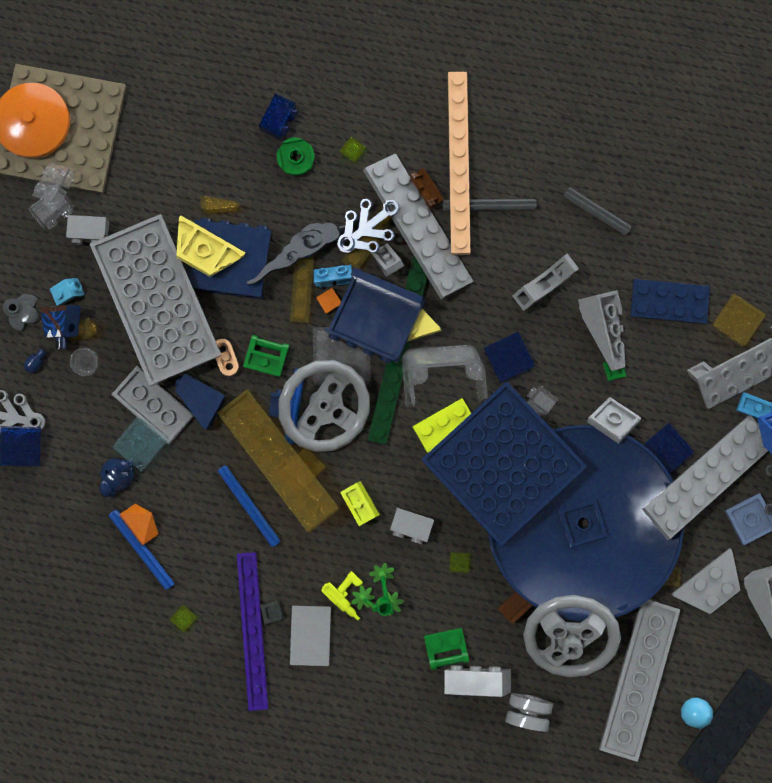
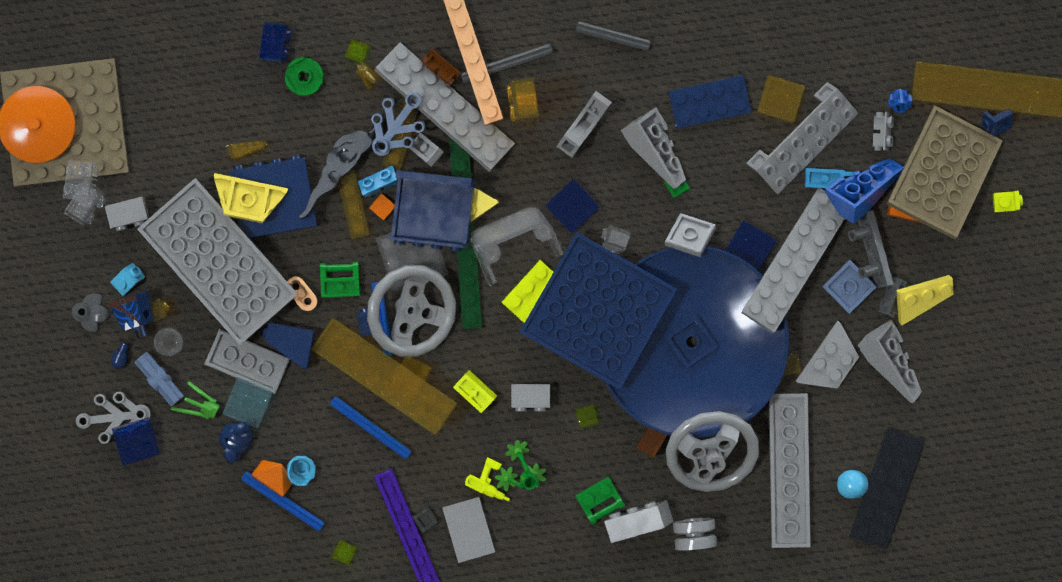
camera: 15 degrees left, 5 degrees up
(63, 394) = (159, 379): none -> sand blue piece
(100, 438) = (209, 408): none -> bright green plant
(164, 521) = (297, 466): none -> medium azure hair
(354, 171) = (367, 75): none -> clear yellow piece
(495, 240) = (524, 101): none -> clear yellow brick

